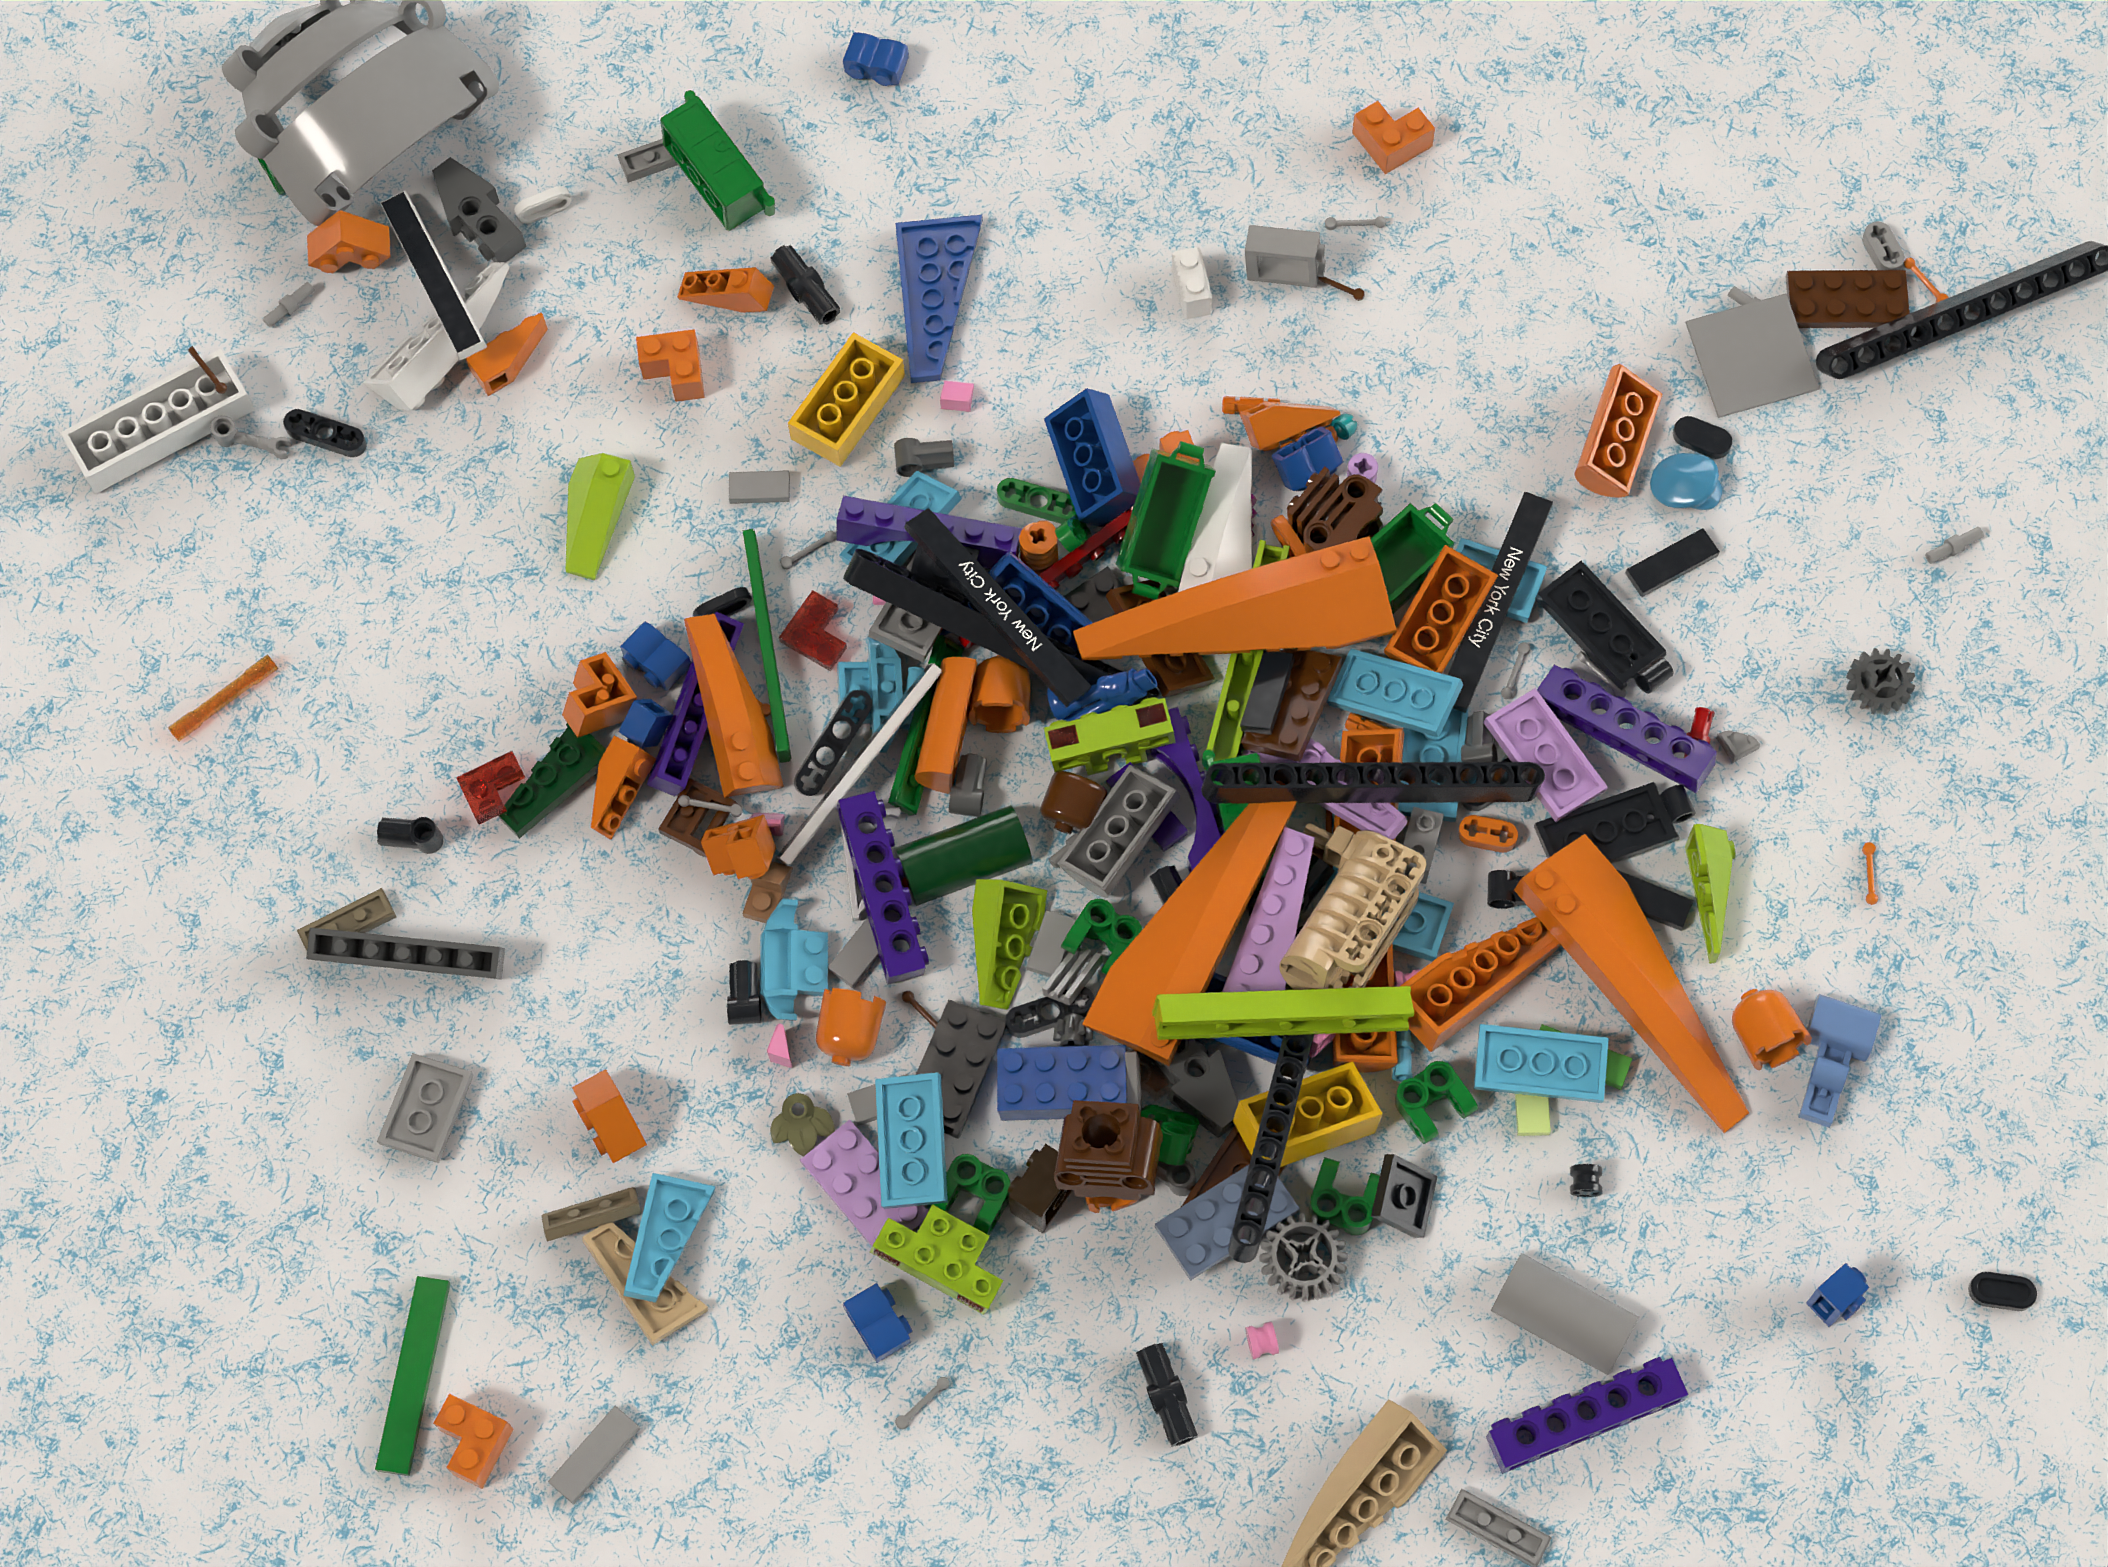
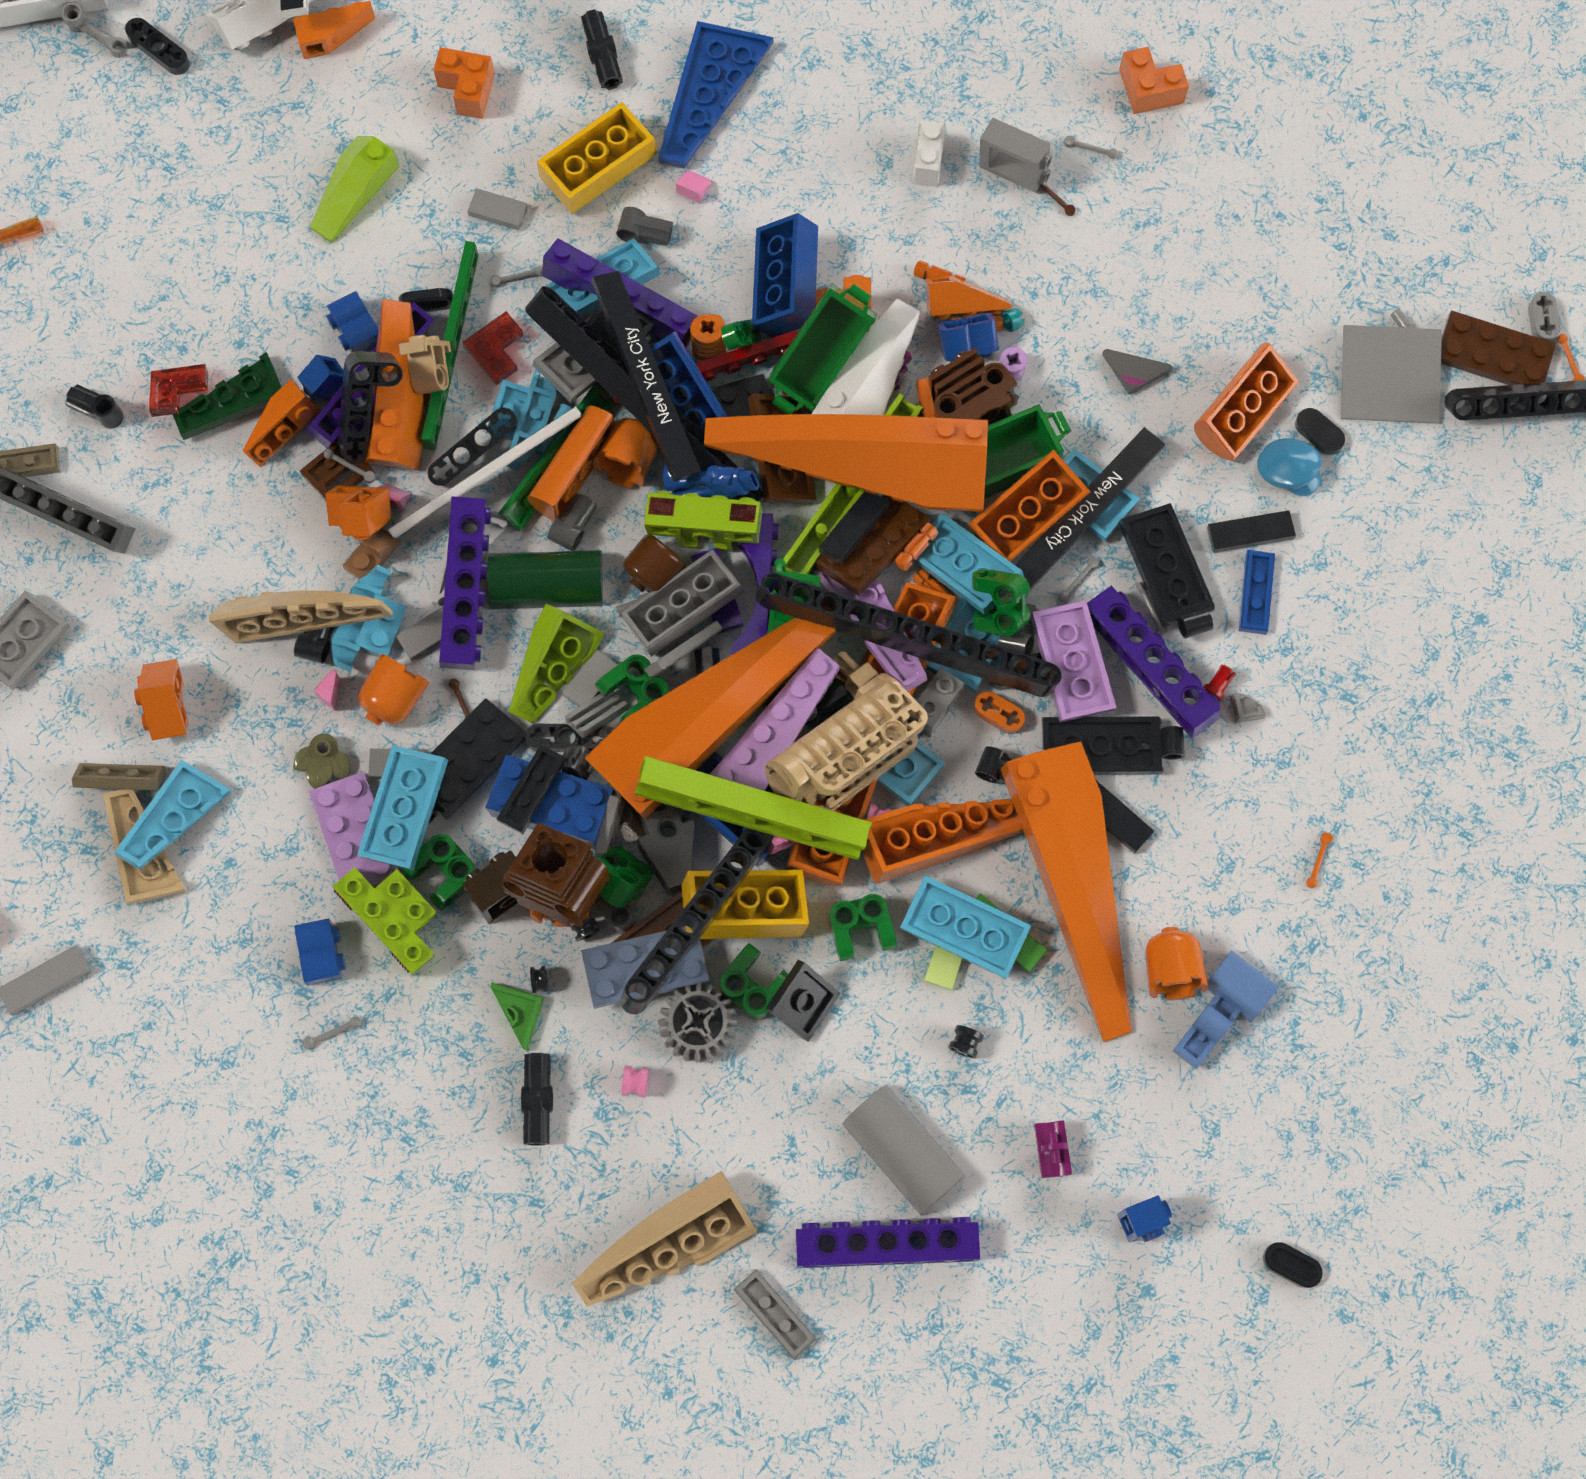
camera: 15 degrees right, 5 degrees up
(600, 696) = (292, 344): orange brick -> none
(709, 775) = (362, 406): none -> black beam
(716, 976) = (292, 613): none -> tan wedge
(728, 289) = (536, 32): orange slope -> none
(757, 671) = (427, 363): none -> tan pin
(1015, 501) = (722, 287): green beam -> none
(1041, 1074) = (531, 789): none -> black tile
(1112, 1310) = (520, 1010): none -> bright green tile
(1119, 1270) = (539, 979): none -> black bush
(1139, 877) = (683, 649): none -> light grey tile
(1148, 1203) = (587, 930): none -> black bush
(1338, 691) = (916, 546): none -> orange axle
(1405, 1048) = (852, 876): medium azure pin -> none
(1442, 700) = (1007, 603): none -> green piece
(1490, 437) = (1133, 370): none -> dark grey tile
(1702, 622) = (1256, 592): none -> blue tile
(1710, 868) = (1180, 806): lime wedge -> none
(1717, 1258) = (1052, 1149): none -> magenta hips
(1891, 691) = (1397, 705): dark grey gear -> none
(1954, 545) = (1505, 598): light grey bar -> none

